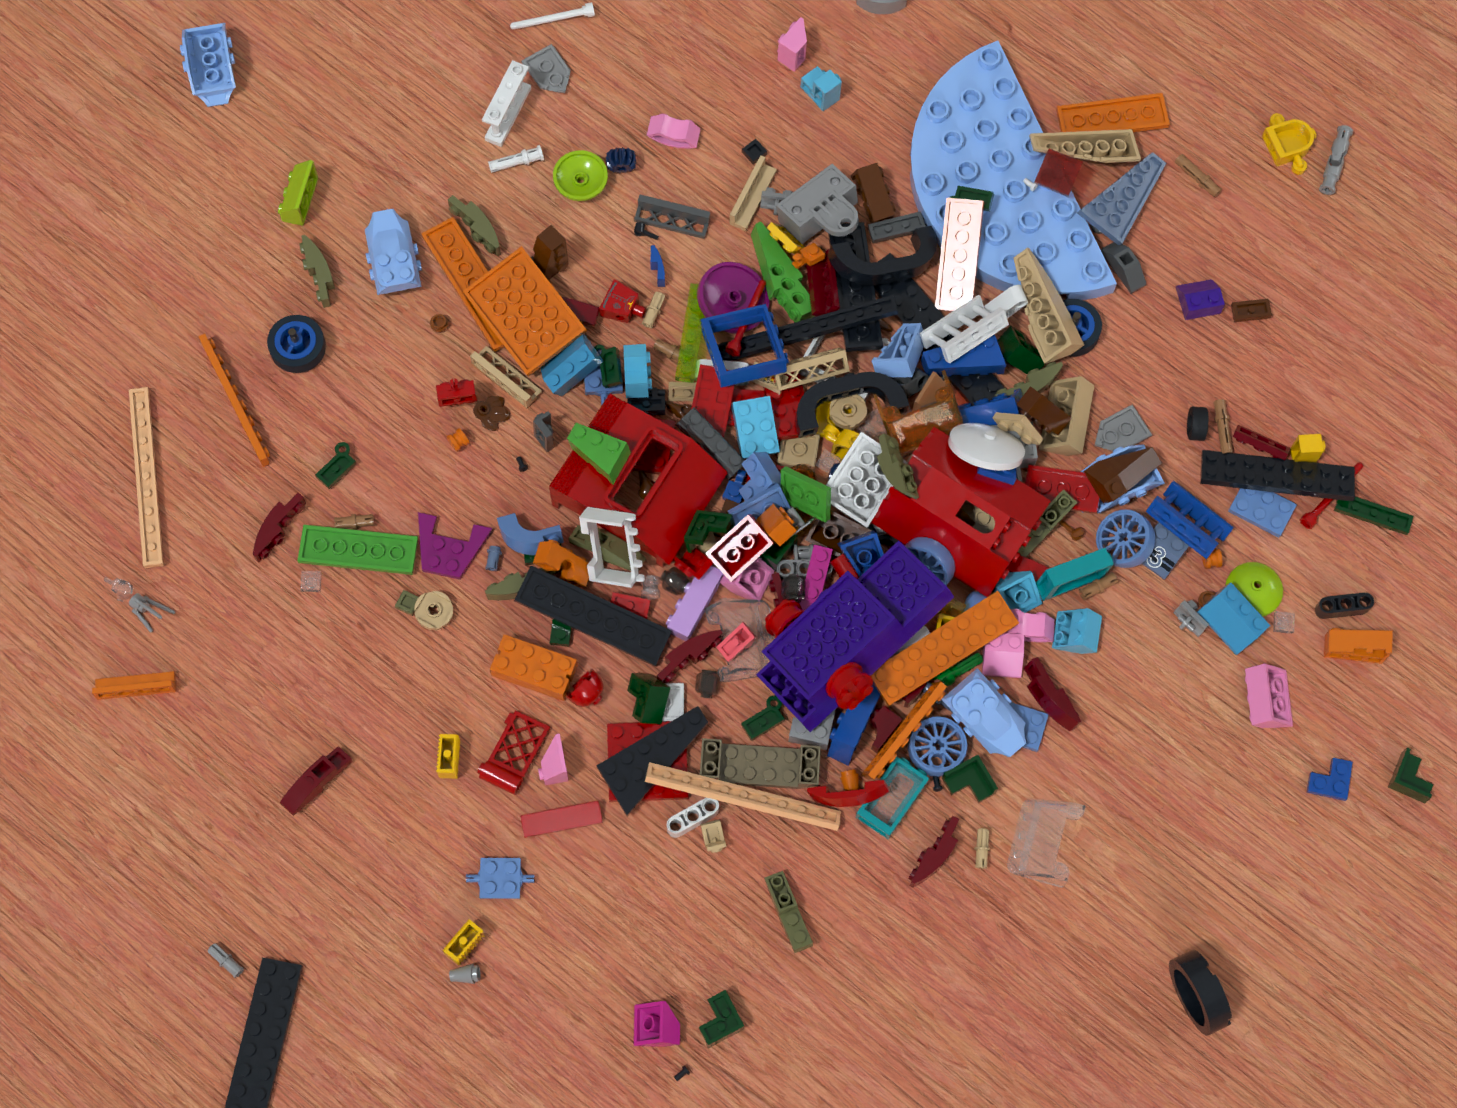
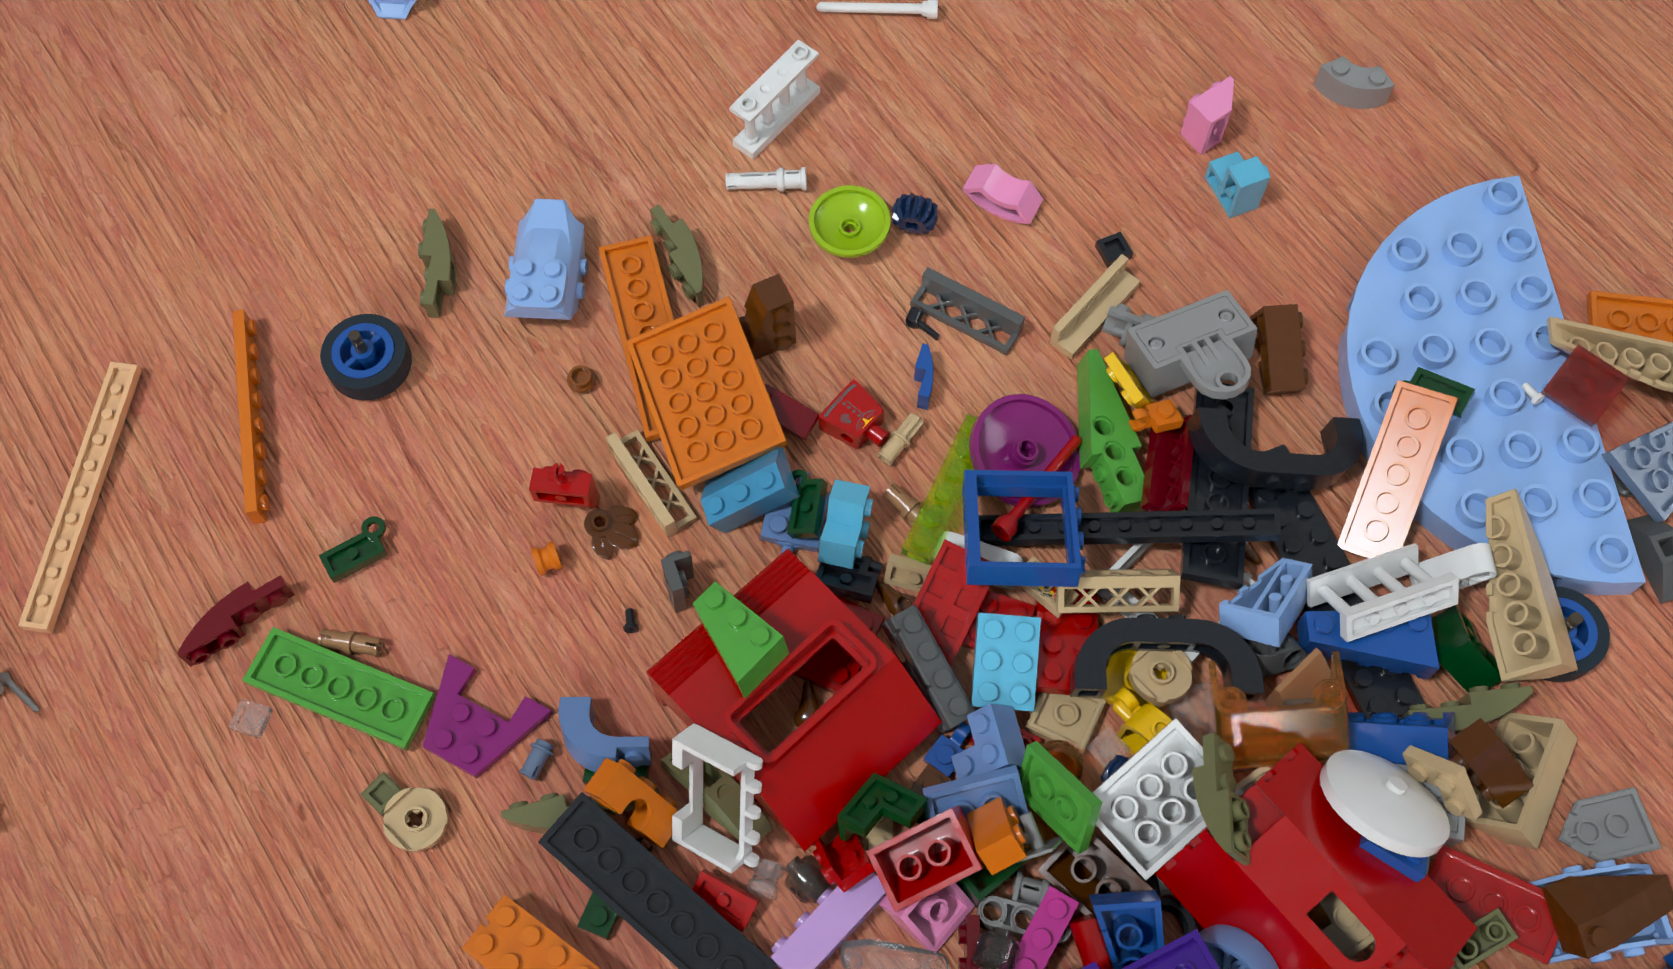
camera: 20 degrees right, 5 degrees down
(298, 193) = (451, 153): lime slope -> none
(548, 69) = (851, 72): light grey tile -> none
(895, 227) = (1301, 408): dark grey plate -> none

